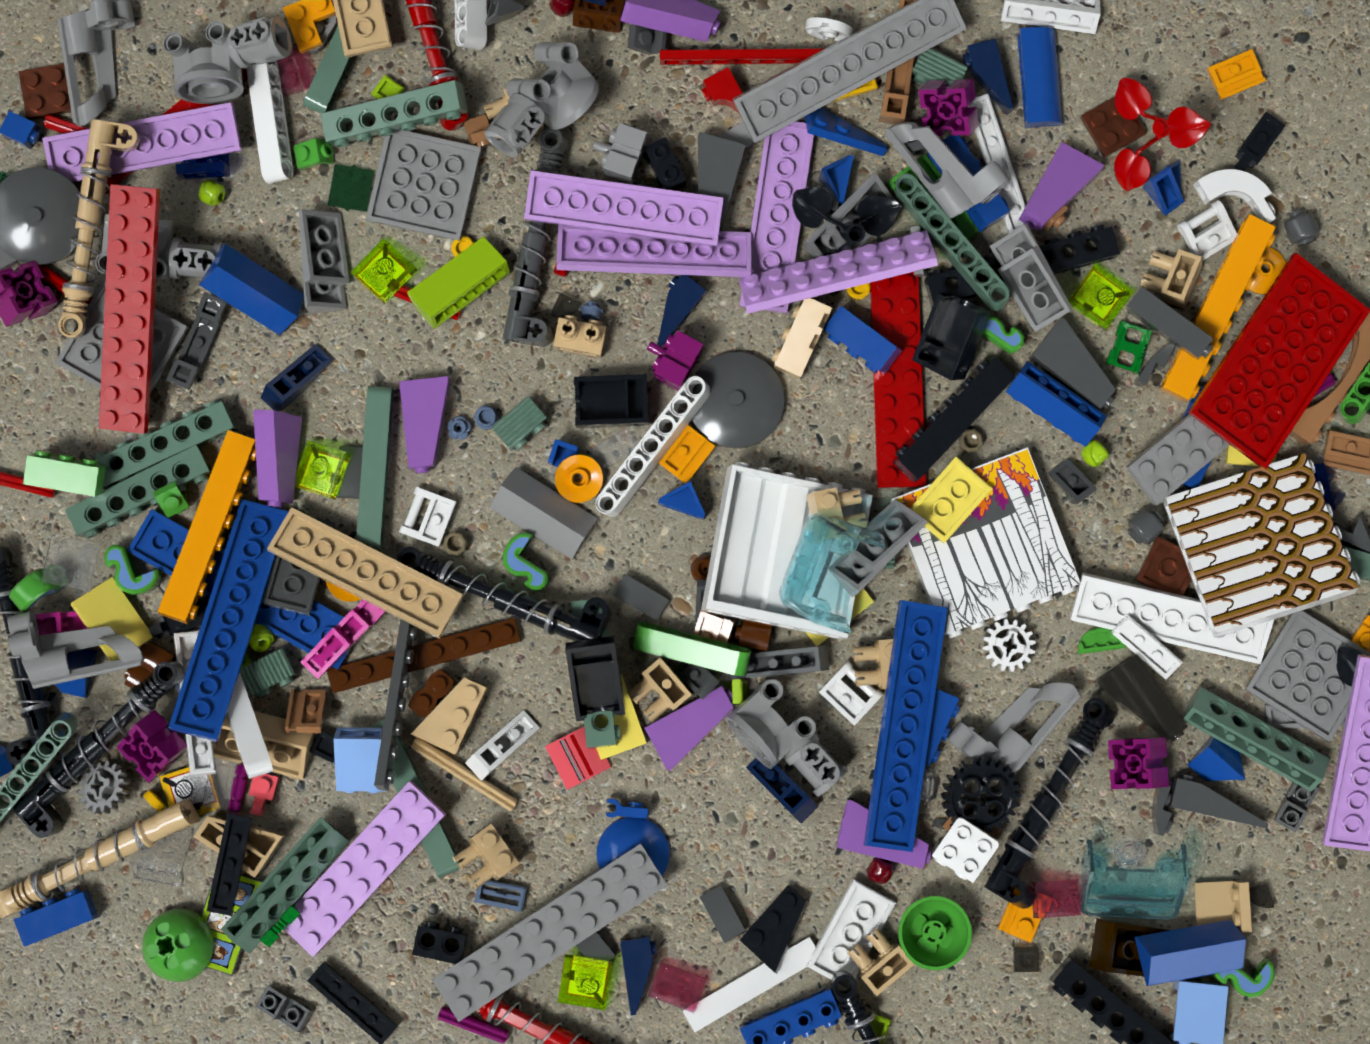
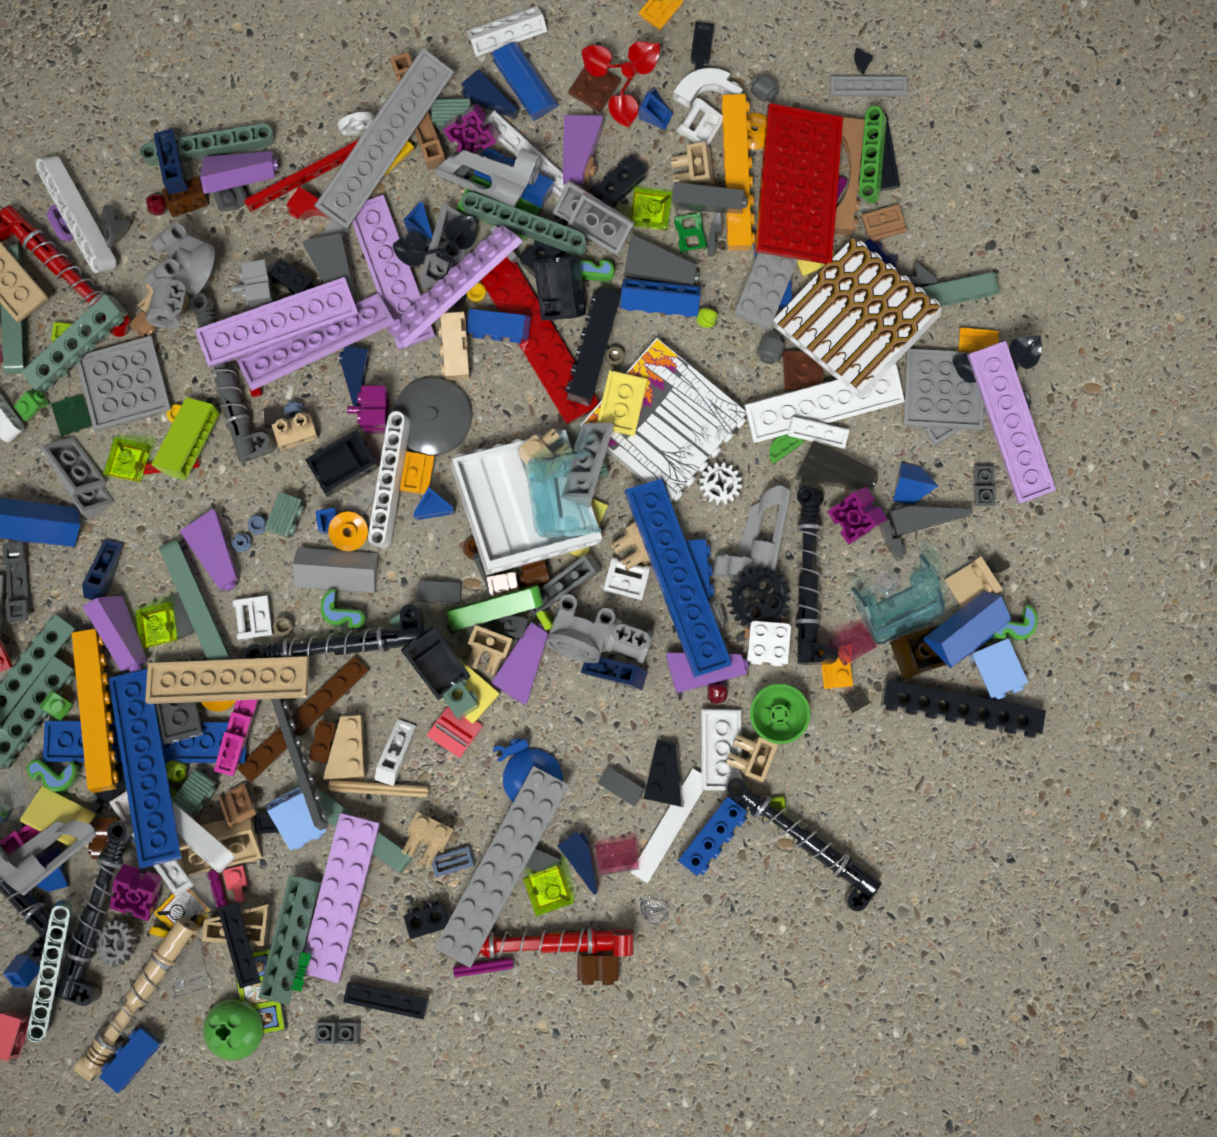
camera: 30 degrees left, 5 degrees down
(832, 127) = (399, 190): blue wing -> none
(1072, 482) = (701, 345): dark grey slope -> none
(1256, 739) = (930, 455): sand green brick -> none

